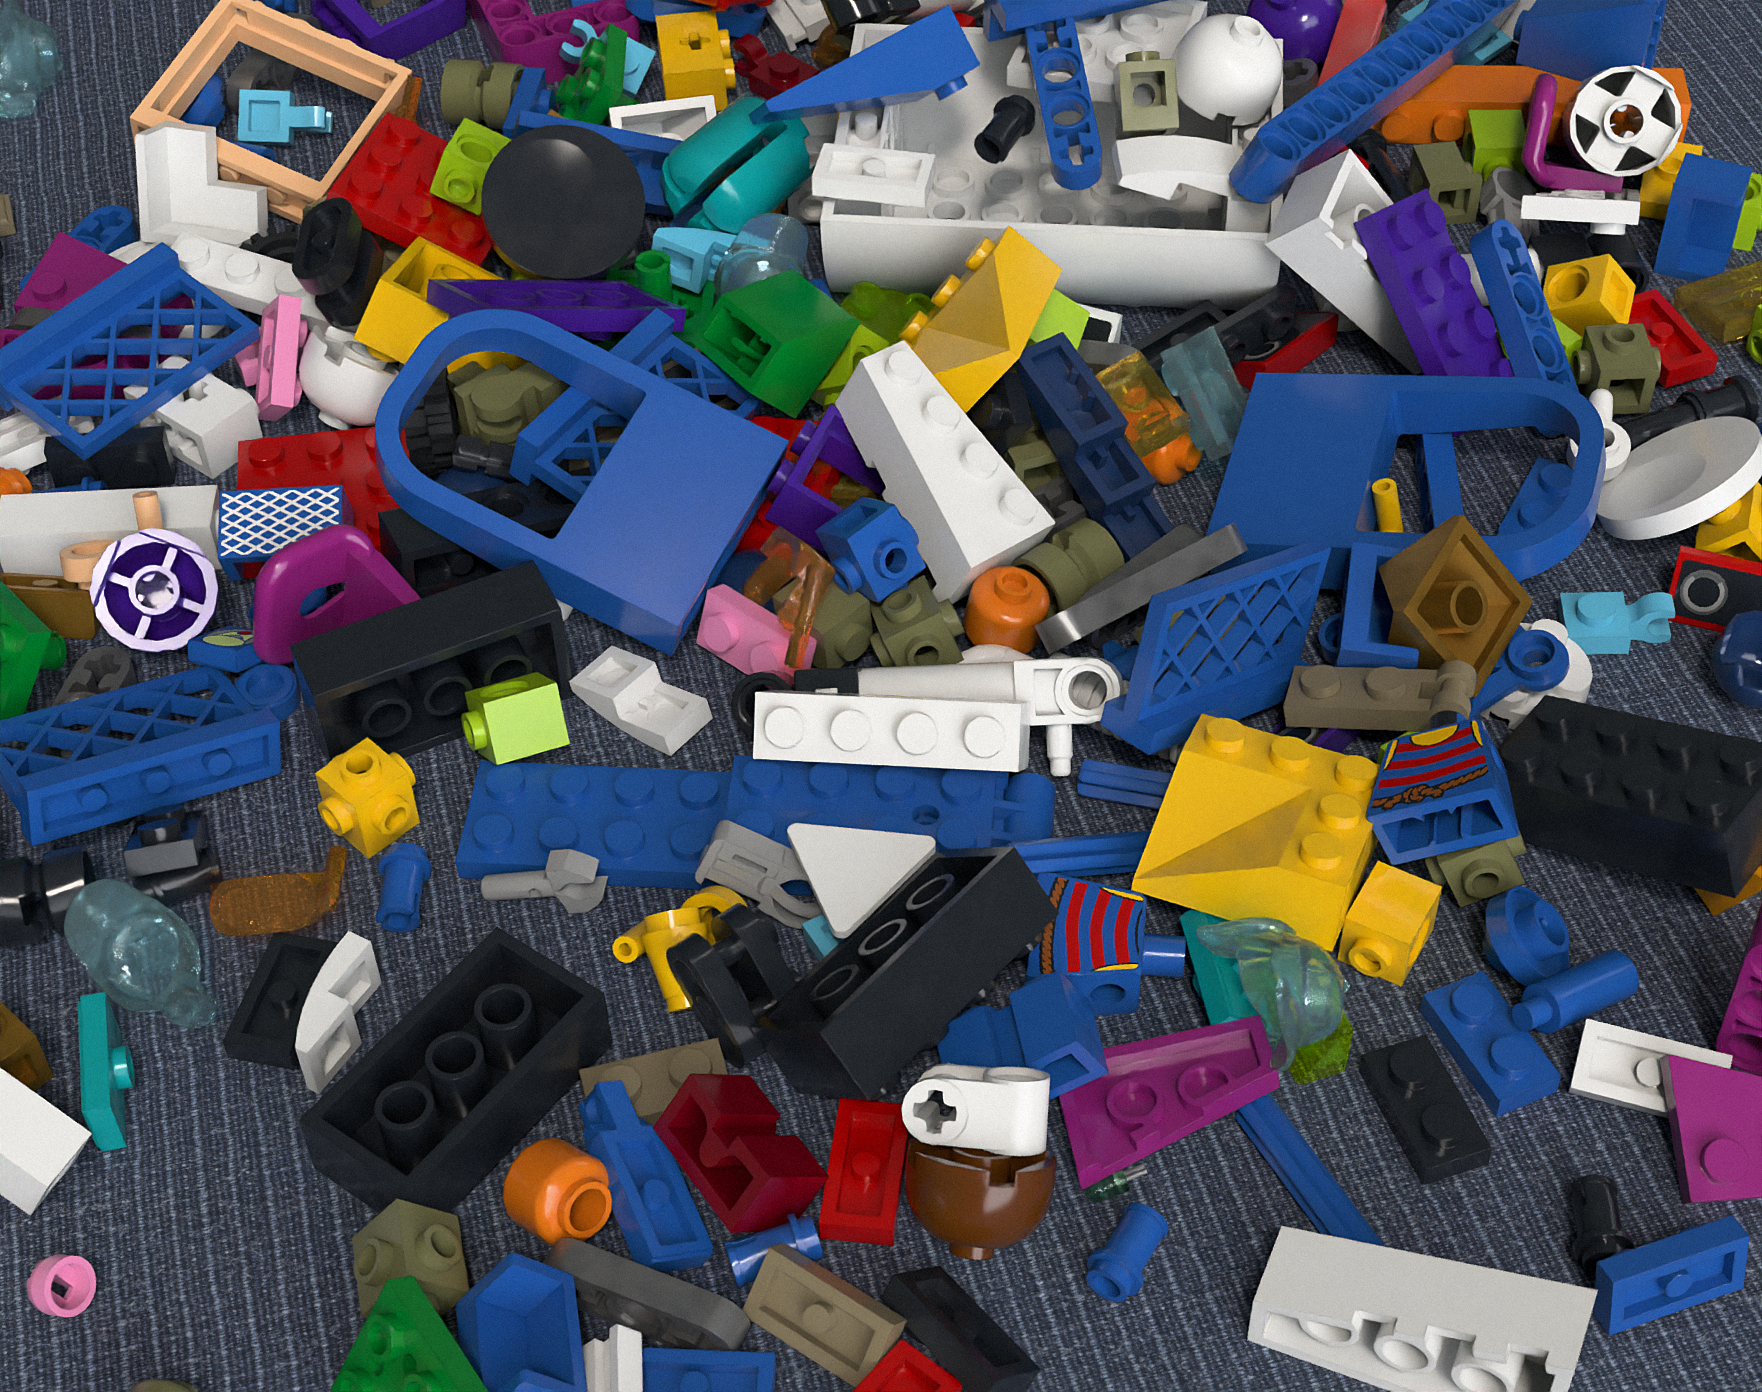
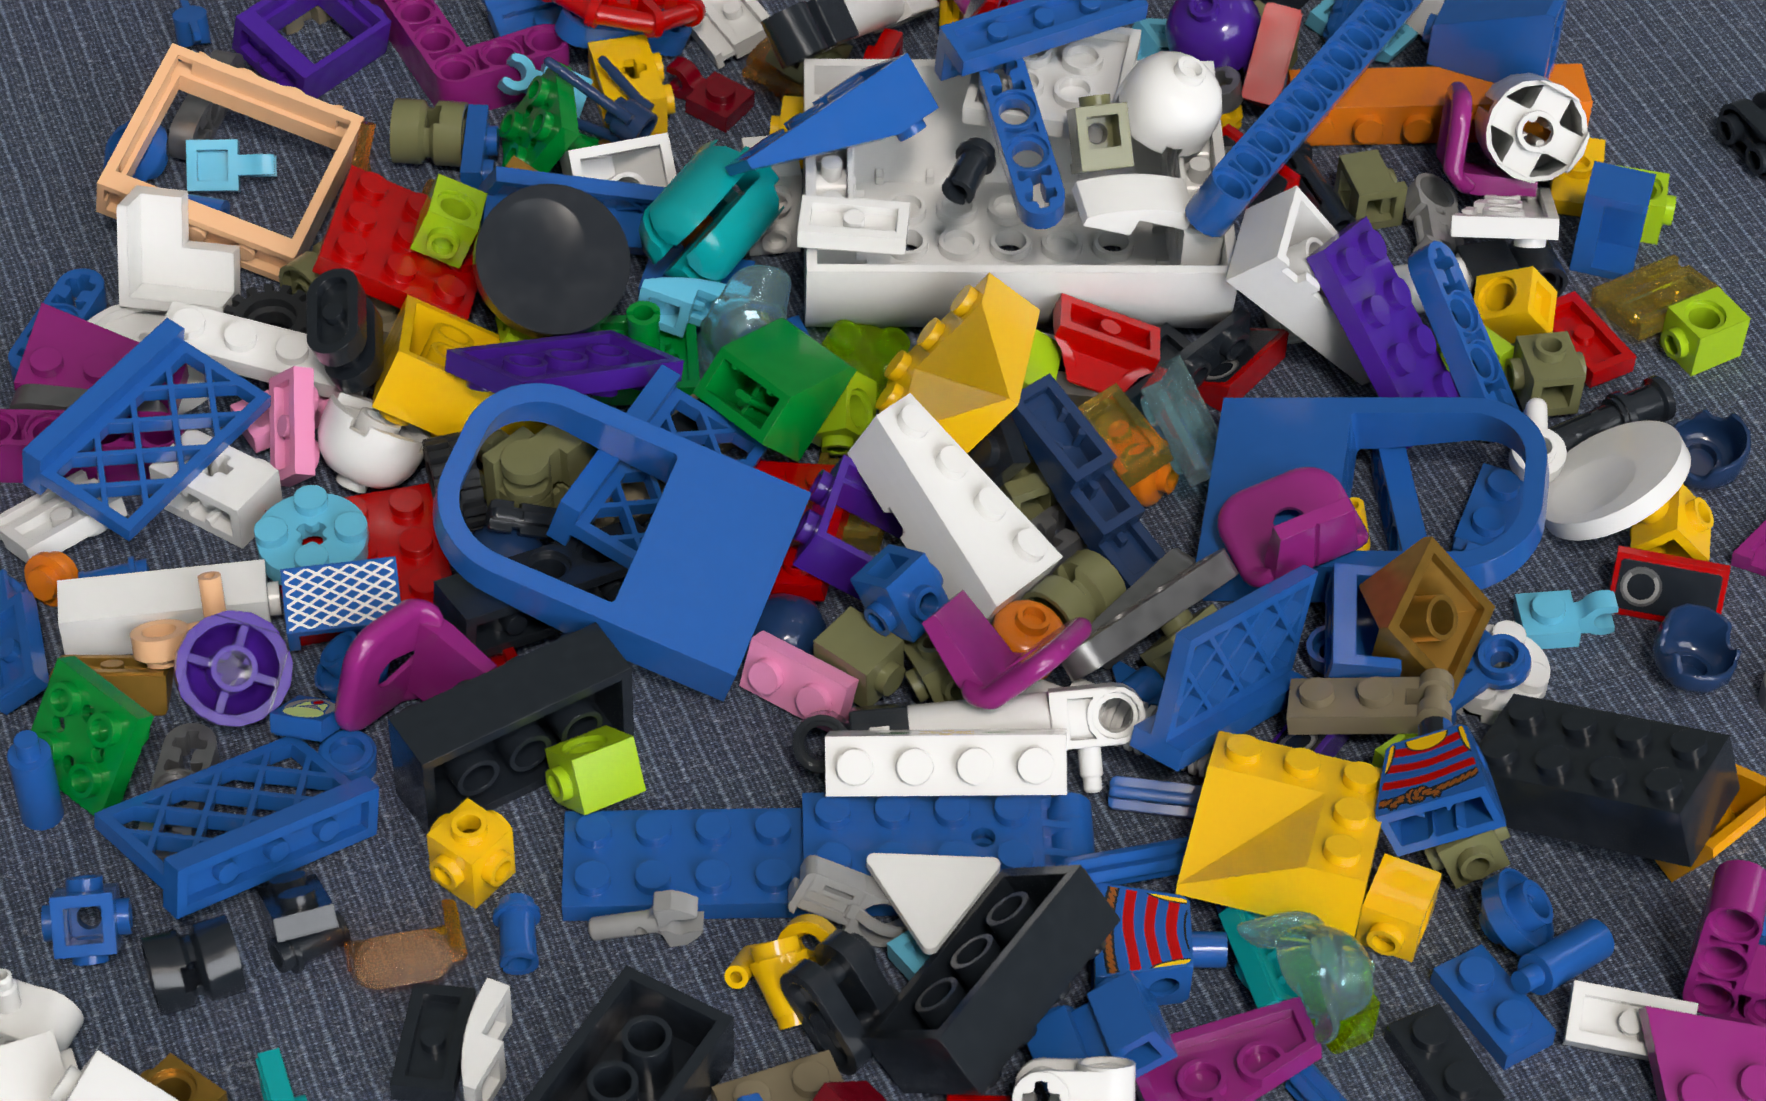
camera: 10 degrees left, 0 degrees up
(130, 461) = (169, 536): black plate -> none
(139, 952) = (297, 1009): clear light blue hair -> none
(273, 443) = (307, 515): none -> medium azure plate
(636, 700) = (692, 743): white slope -> none
(674, 80) = (626, 117): none -> dark blue plant
(785, 559) = (820, 605): clear orange helmet -> none
(946, 621) = (983, 661): none -> magenta piece
(1132, 313) = (1103, 345): none -> red slope
(1336, 505) = (1322, 532): none -> magenta piece
(1494, 141) = (1413, 146): lime brick -> none

